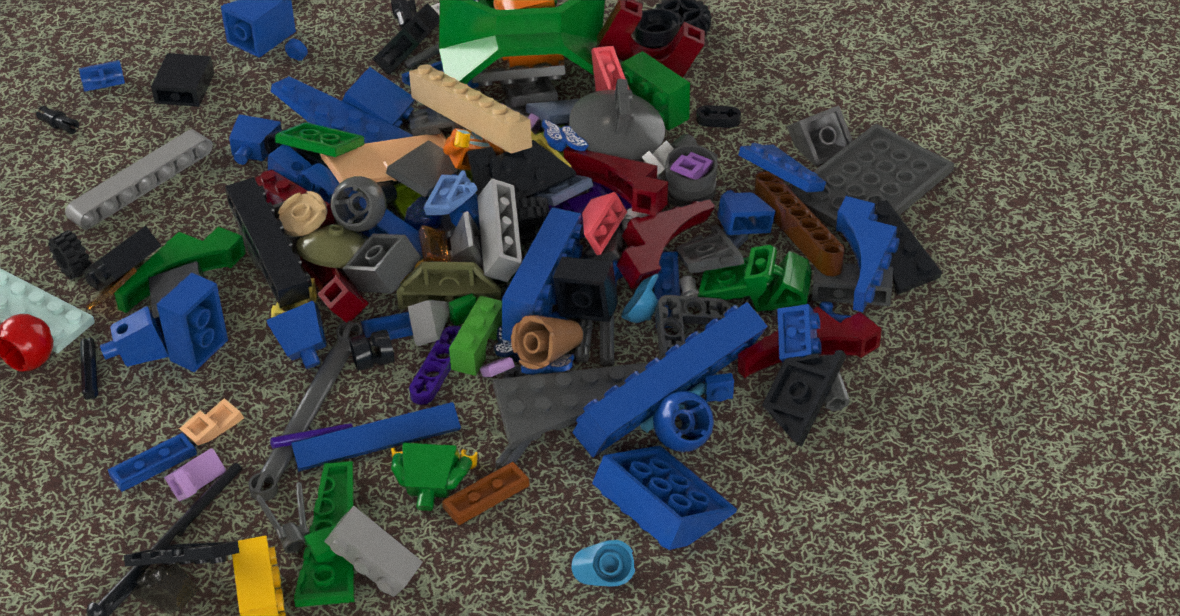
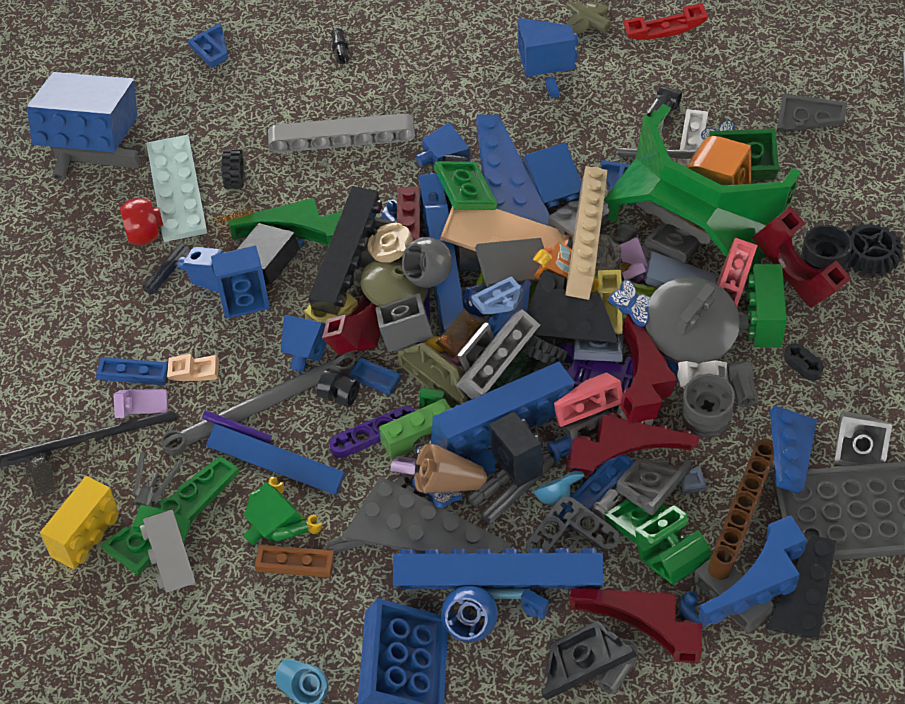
camera: 45 degrees right, 10 degrees up
(101, 75) = (402, 26): blue hips -> none
(121, 259) = (255, 196): black brick -> none
(182, 79) = (449, 64): black brick -> none
(184, 554) = (61, 459): black wing -> none
(407, 39) = (630, 131): black slope -> none
(428, 320) = (398, 391): light grey slope -> none
(692, 166) = (703, 400): medium lavender slope -> none
(744, 214) = (716, 467): blue torso -> none
(798, 332) = (625, 608): blue bracket -> none

